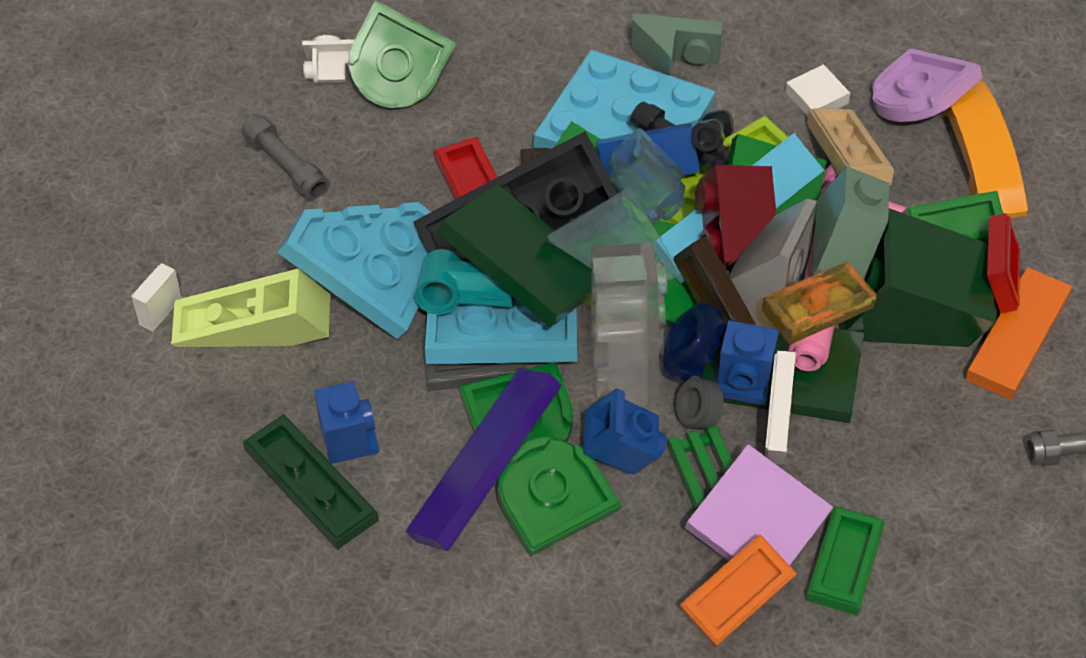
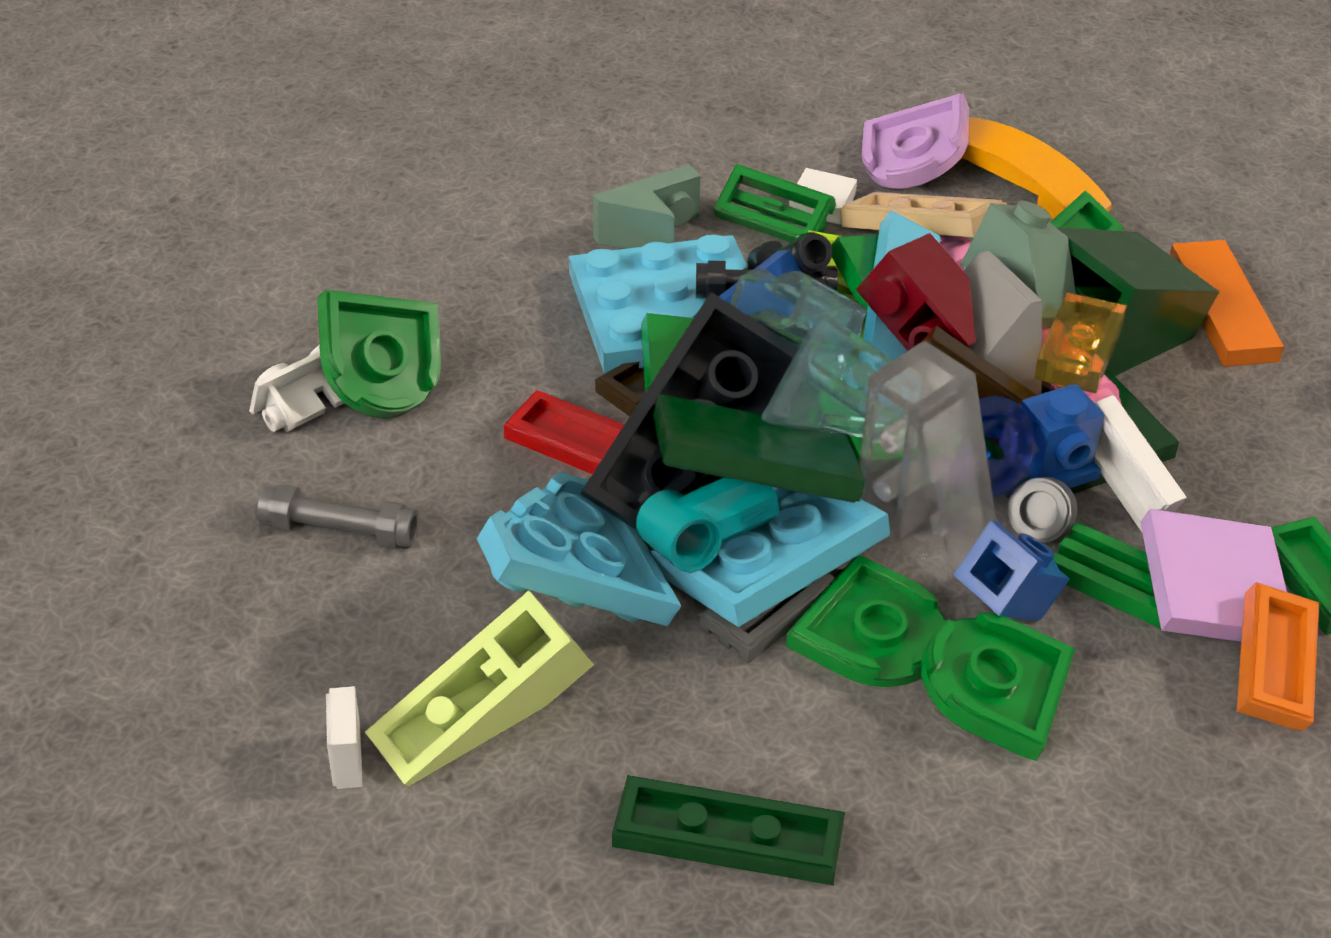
camera: 40 degrees left, 10 degrees down
(345, 423) = (722, 720): blue brick -> none
(483, 459) = (909, 685): dark purple tile -> none
(783, 108) = (821, 202): none -> green tile
(1004, 263) = (1171, 238): red tile -> none

